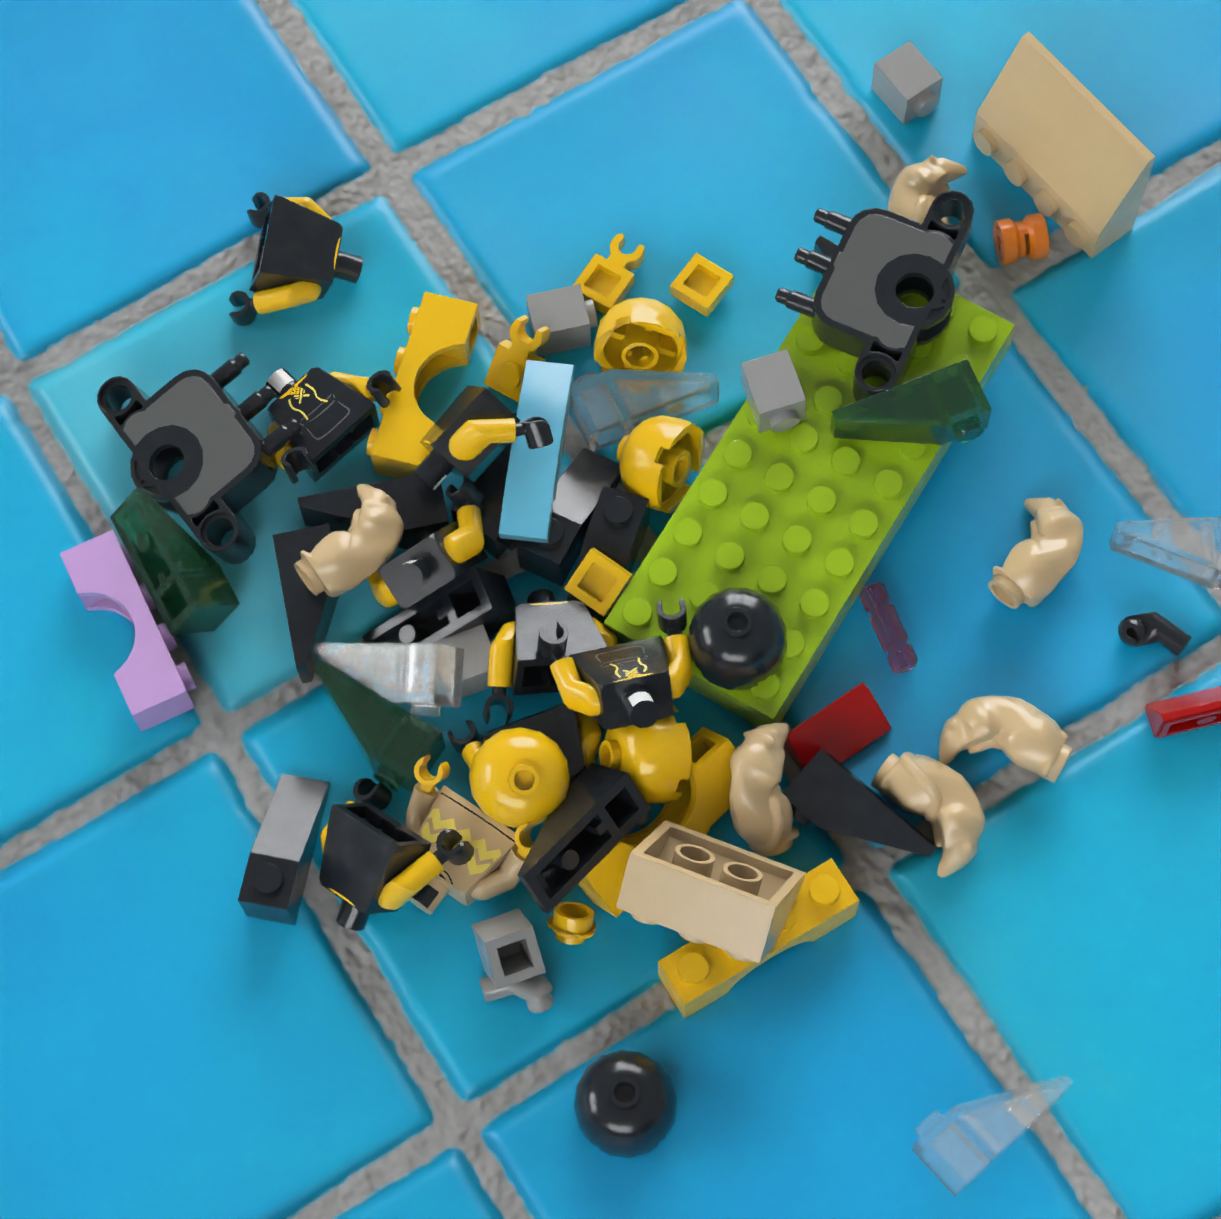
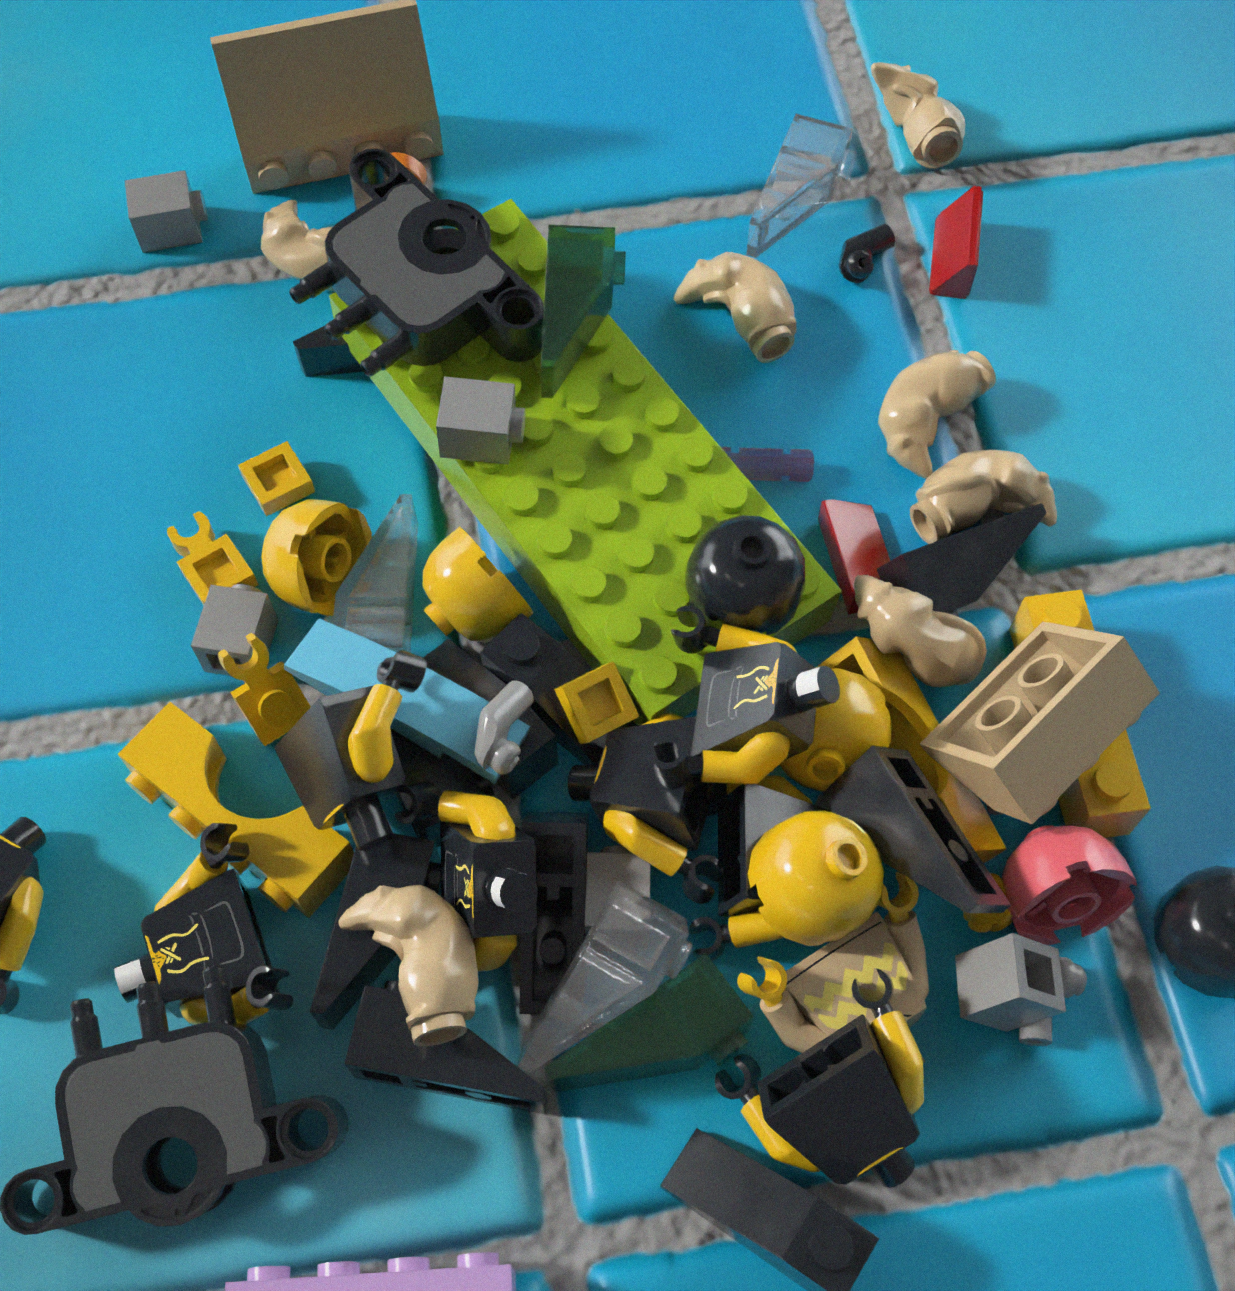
camera: 70 degrees left, 5 degrees down
(175, 569) = (321, 1217): clear green slope -> none
(526, 512) = (495, 719): none -> light grey arm
(607, 963) = (1064, 881): none -> coral cylinder

